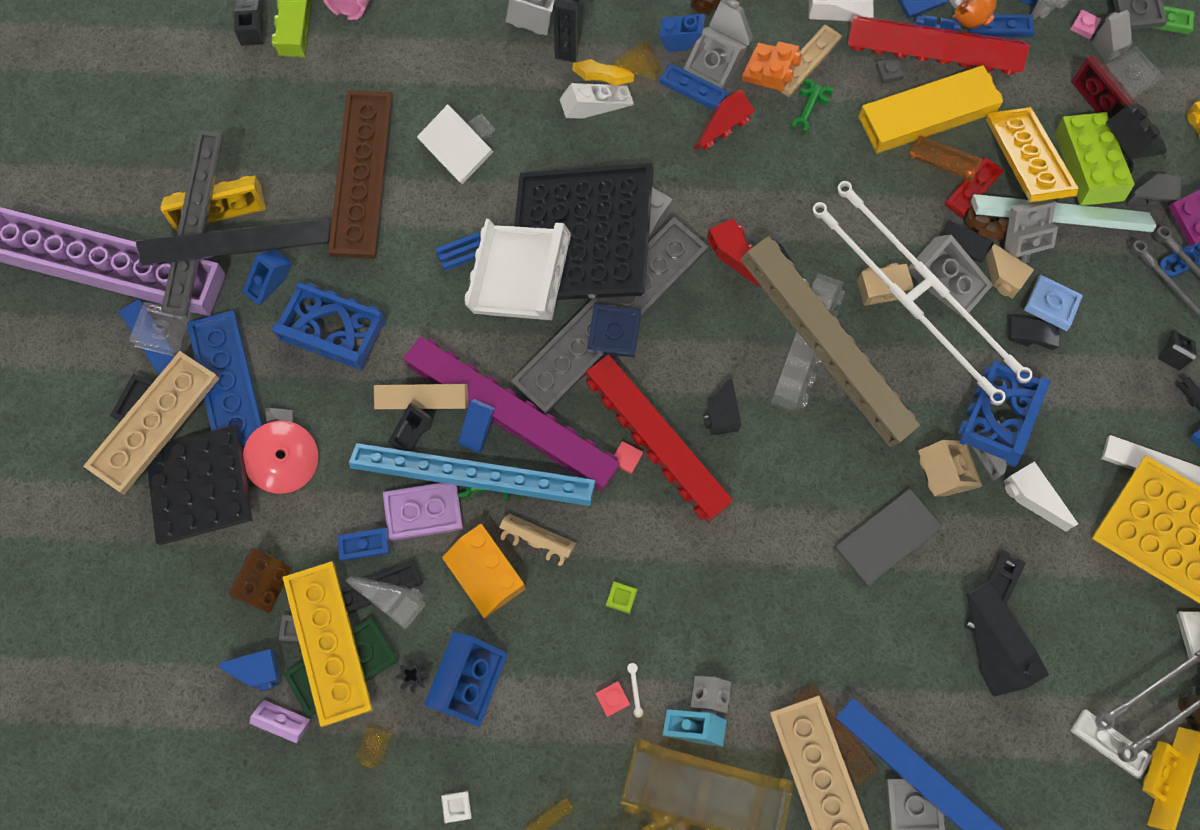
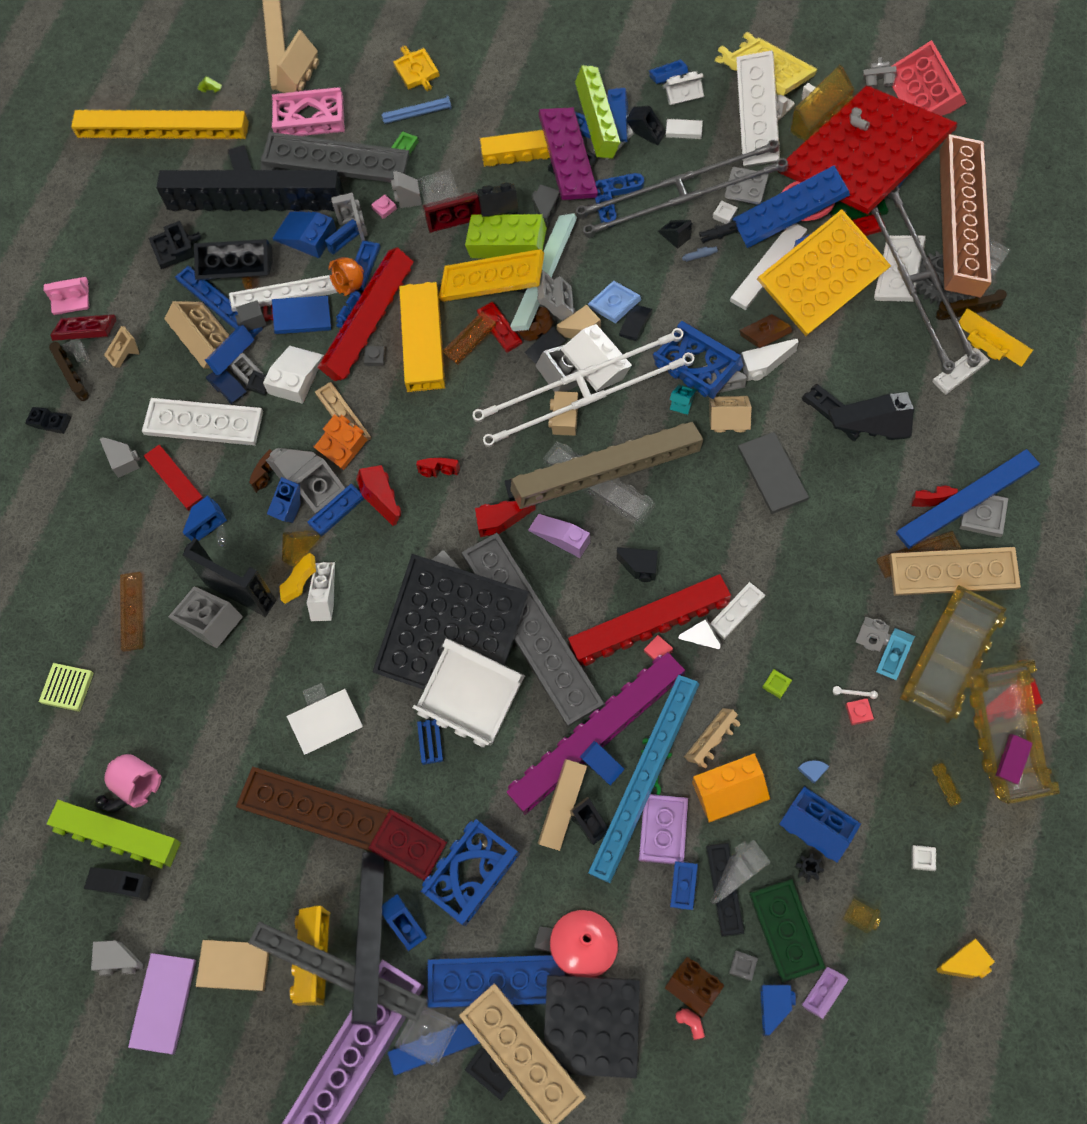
camera: 65 degrees left, 5 degrees down
(148, 90) = (162, 1004): none -> lavender tile
(181, 33) = (113, 956): none -> light grey slope
(184, 133) = (232, 966): none -> tan tile
(226, 581) = (693, 1020): none -> coral arm
(327, 644) = (767, 934): yellow plate -> none
(343, 257) = (407, 845): none -> dark red tile
(528, 659) = (813, 770): none -> medium blue tile
(614, 330) = (549, 627): dark blue tile -> none
(654, 500) = (702, 634): none -> slope
(698, 533) = (737, 610): none -> white tile
(733, 319) = (561, 534): none -> lavender slope
(774, 168) = (432, 466): none -> red slope
(815, 93) = (376, 417): green bar -> none
(921, 746) = (926, 499): none -> red slope
(949, 409) = (682, 399): none -> teal slope
(975, 289) = (593, 348): none -> white slope
(1076, 485) = (765, 331): none -> reddish brown plate
(1162, 387) = (701, 252): none -> sand blue piece

